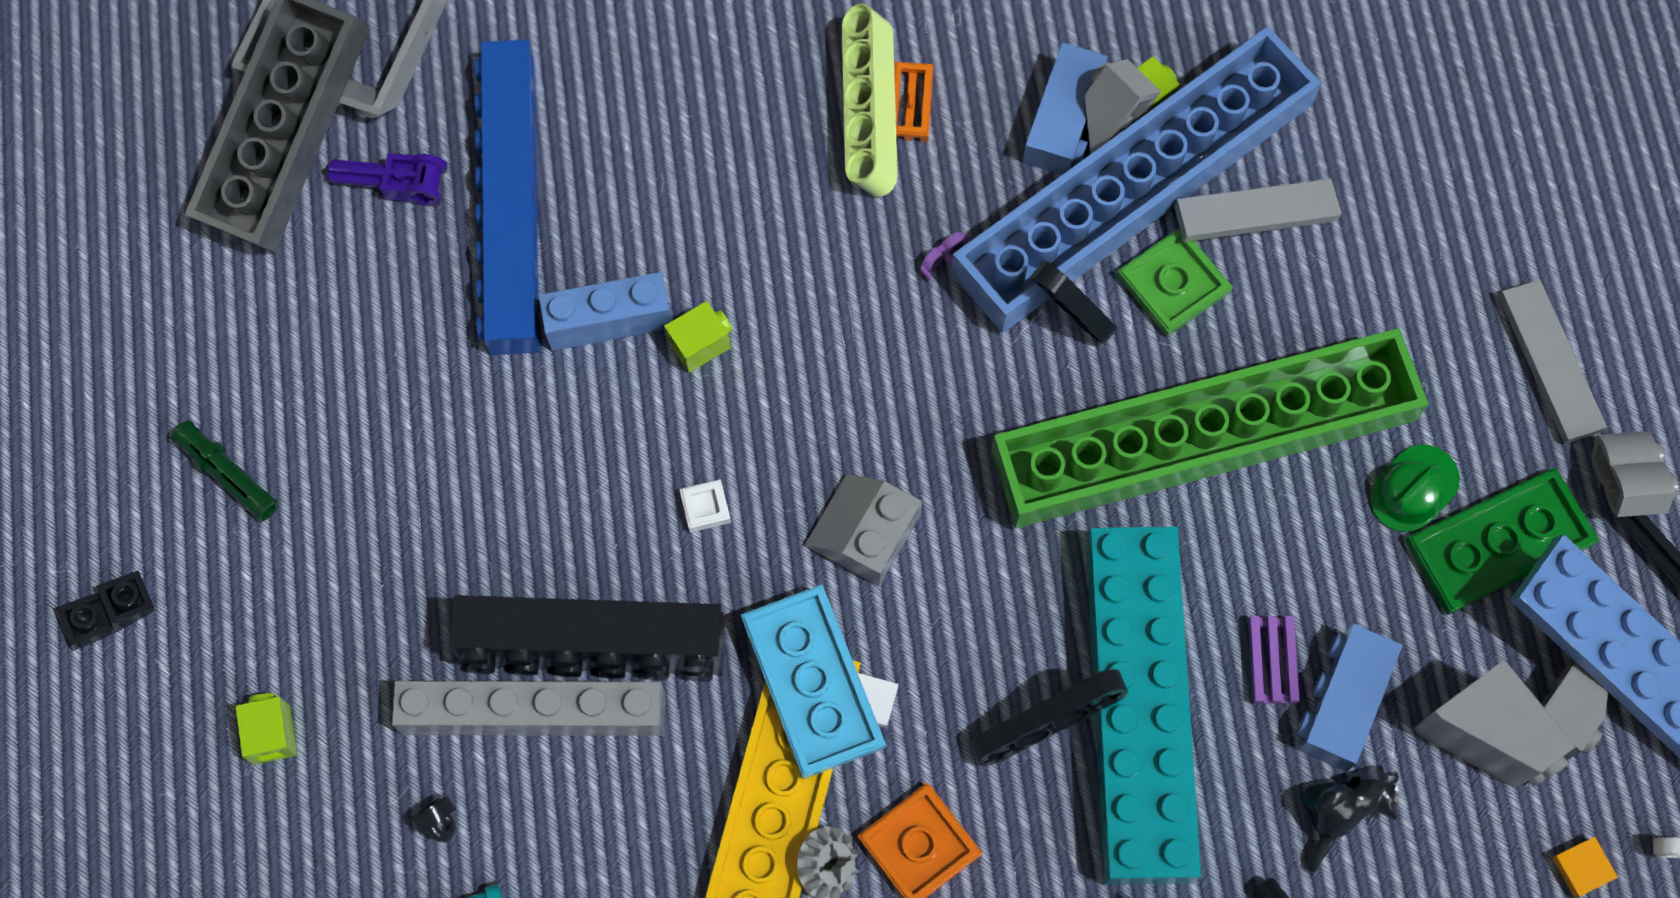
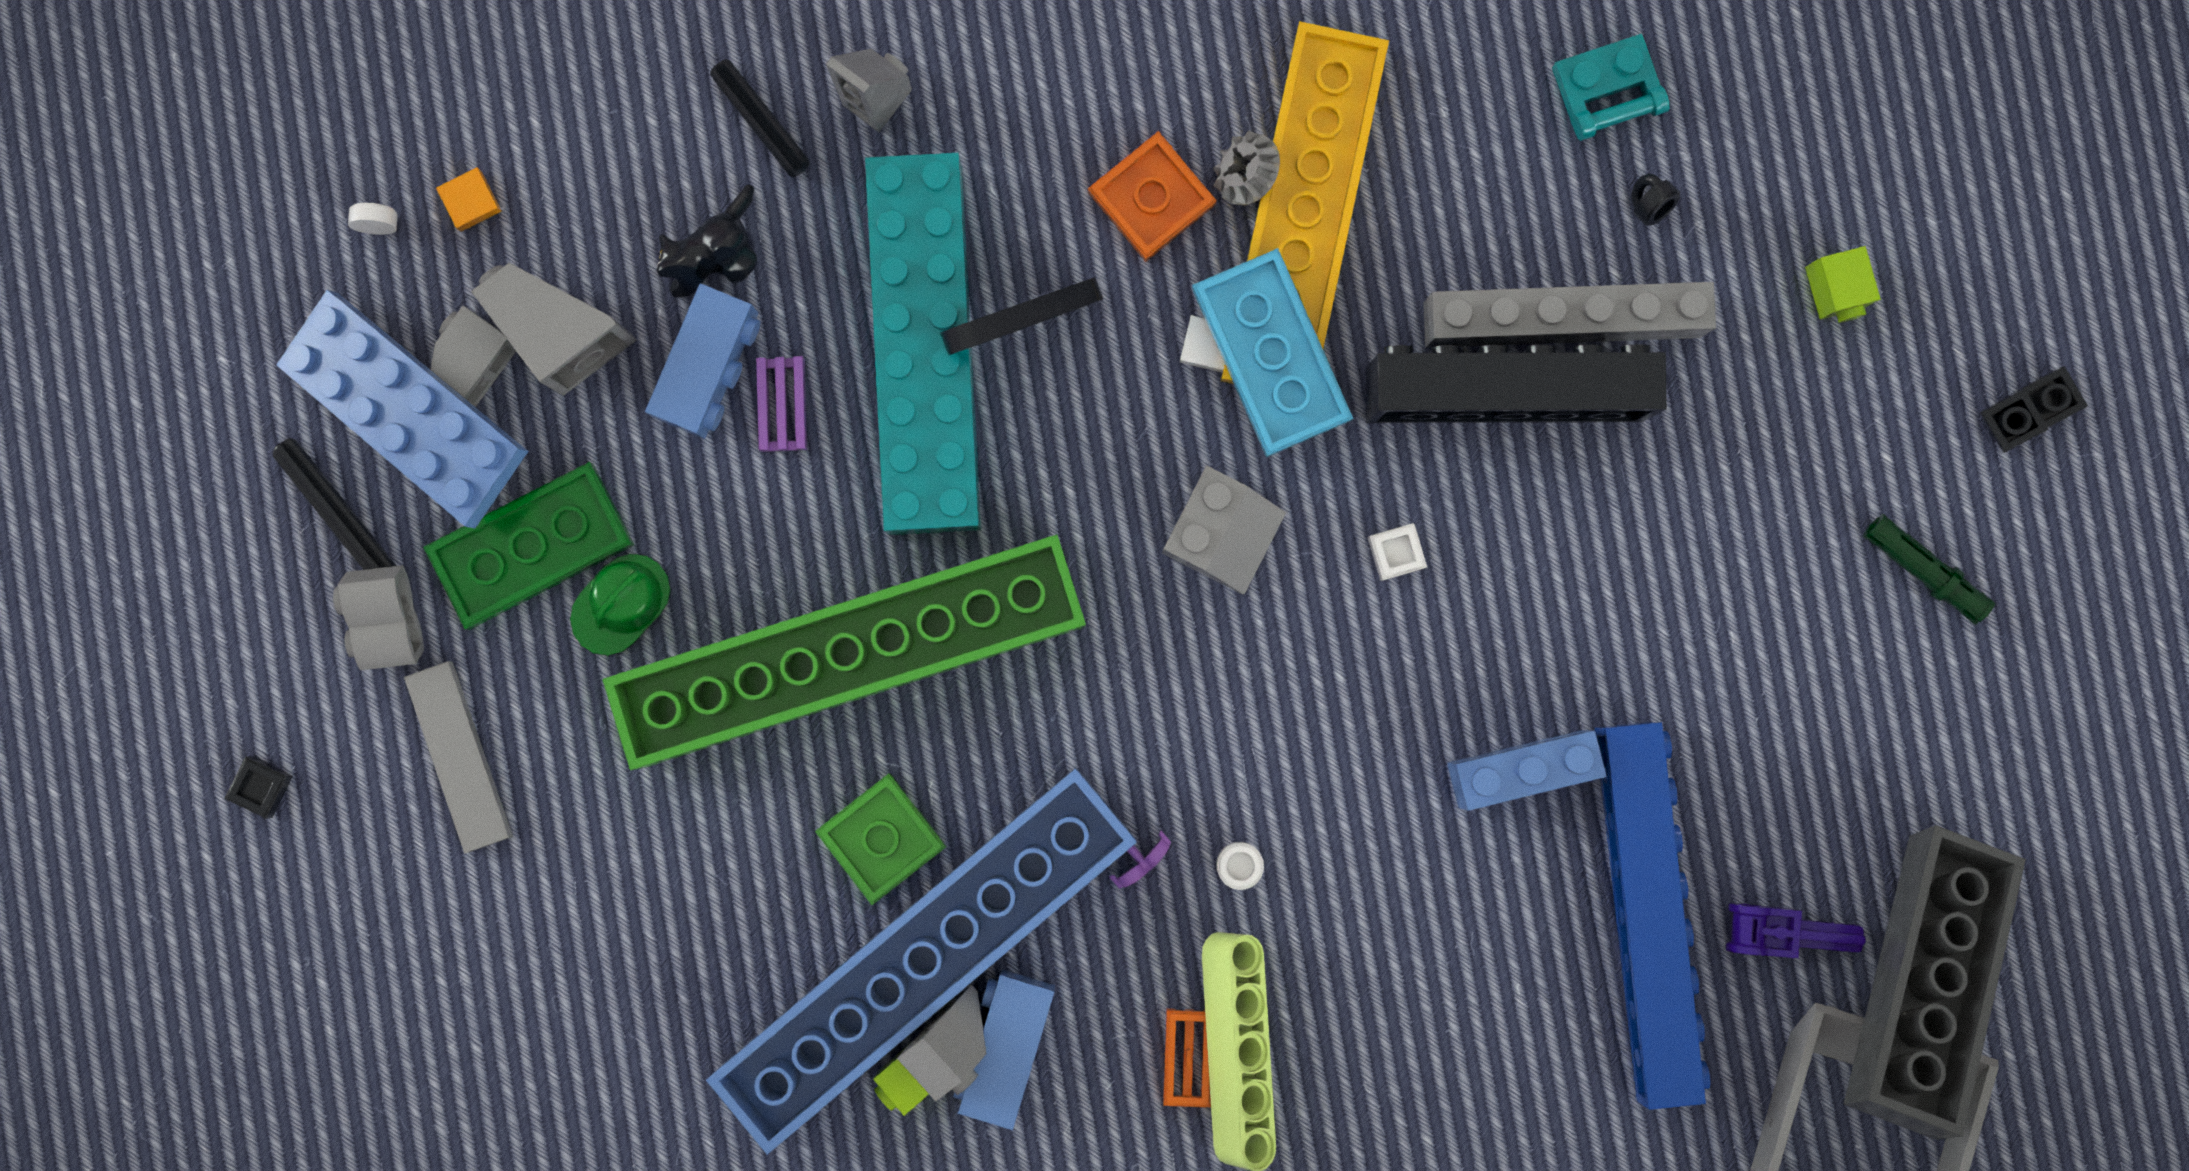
camera: 175 degrees right, 15 degrees up
(699, 335) = (1418, 745): lime brick -> none
(860, 248) = (1240, 865): none -> white tile
(1073, 302) = (998, 790): black beam -> none
(1257, 210) = (784, 927): light grey tile -> none

